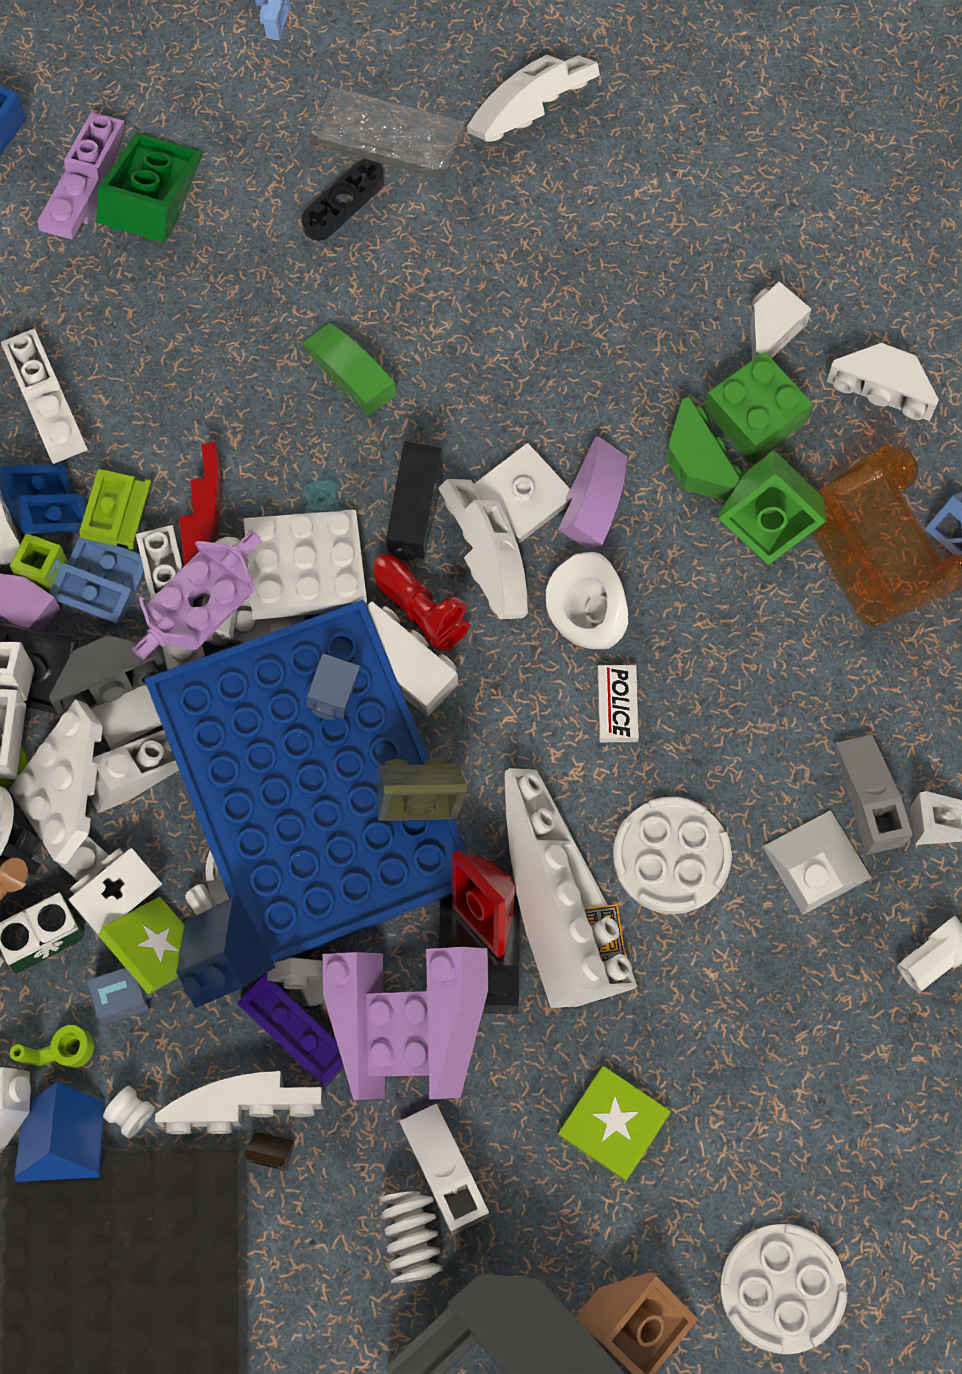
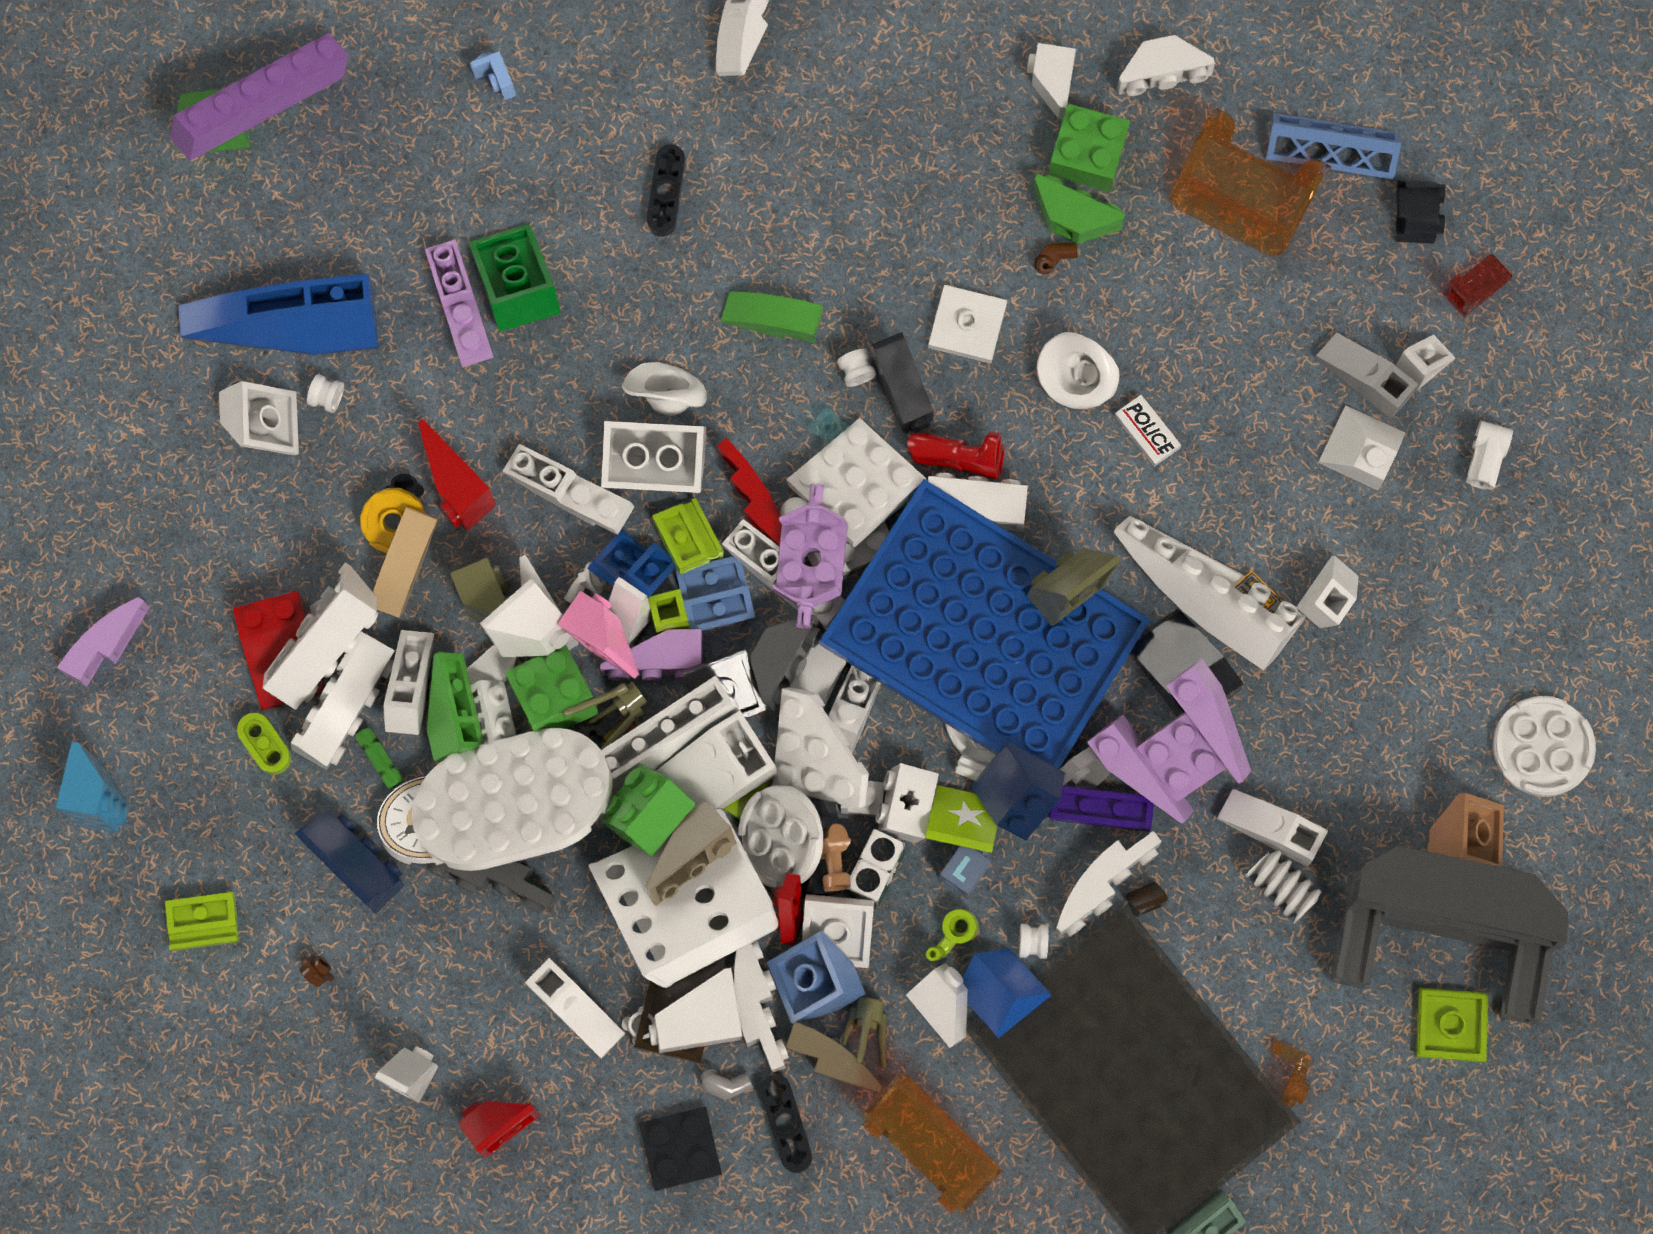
camera: 35 degrees left, 5 degrees up
(139, 416) = (653, 456): none -> white slope
(194, 358) = (655, 378): none -> white hat
(332, 687) = (955, 555): sand blue brick -> none
(385, 462) = (856, 367): none -> white wheel
(387, 133) = (662, 116): clear plate -> none
(483, 899) = (1168, 630): red slope -> none
(495, 553) = (988, 384): white slope -> none
(595, 495) = (1023, 290): lavender slope -> none
(614, 1123) = (1358, 718): lime tile -> none
(652, 482) = (1052, 254): none -> reddish brown arm
(672, 855) = (1262, 511): white tile -> none
(676, 980) = (1330, 594): none -> white slope
(773, 508) = (1157, 216): bright green slope -> none

